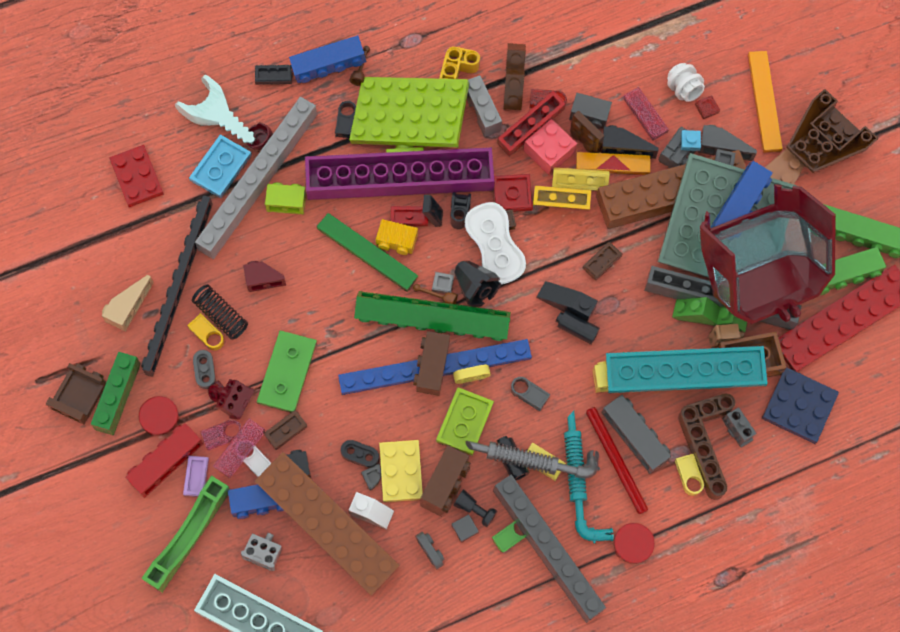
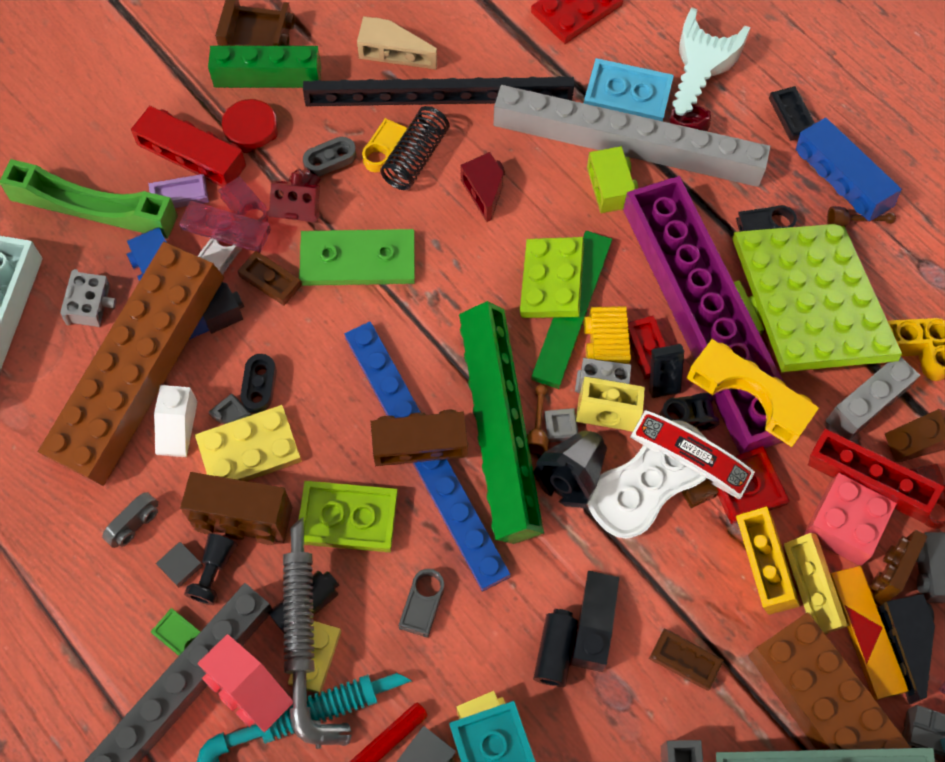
camera: 75 degrees right, 5 degrees down
(344, 256) = (552, 277): none -> lime plate
(423, 248) = (602, 370): none -> light grey piece
(442, 249) = (610, 404): none -> light yellow brick
(471, 374) = (425, 505): light yellow beam -> none
(485, 154) = (722, 369): none -> yellow arch
(488, 214) = (694, 452): none -> slope
(555, 497) = (244, 684): none -> coral brick

